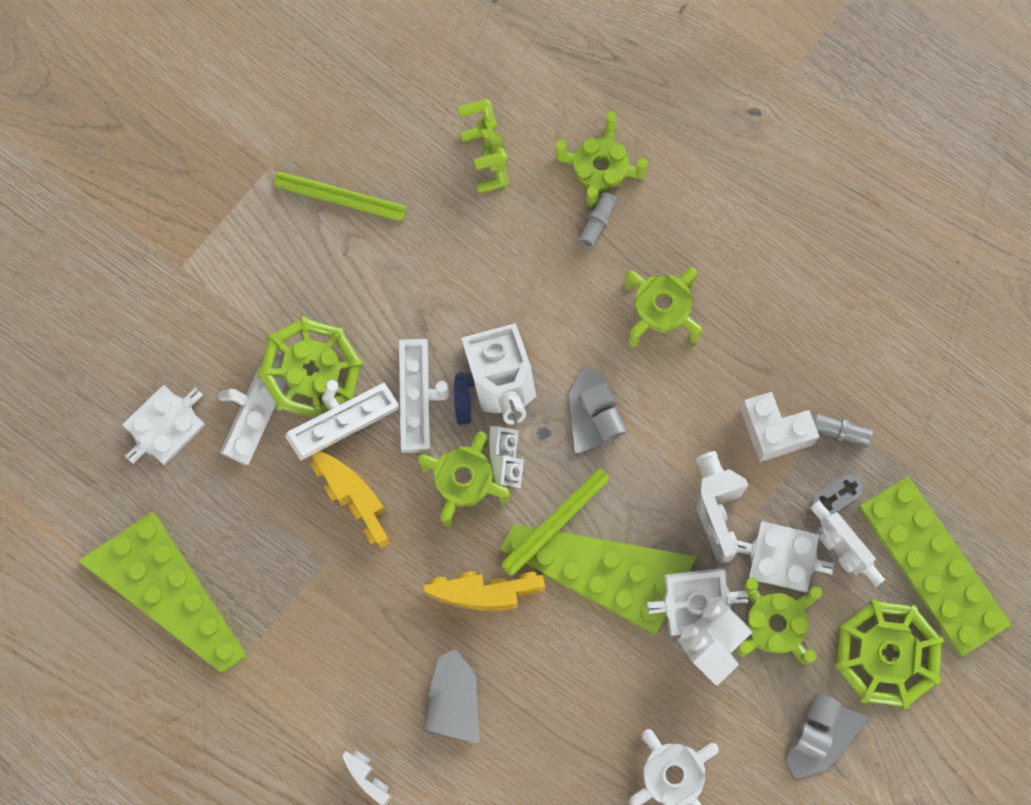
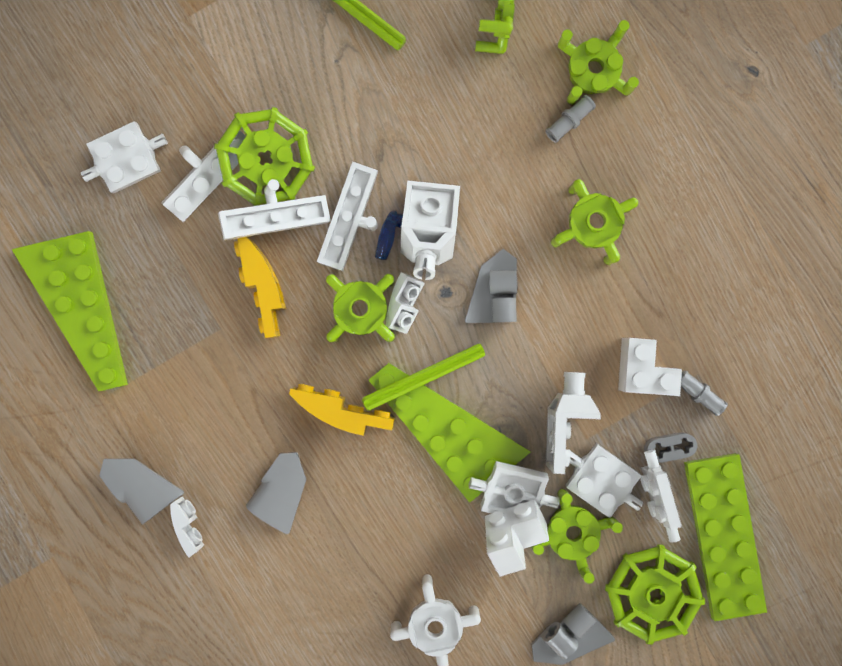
camera: 25 degrees right, 15 degrees up
(301, 755) = (138, 487): none -> light grey panel

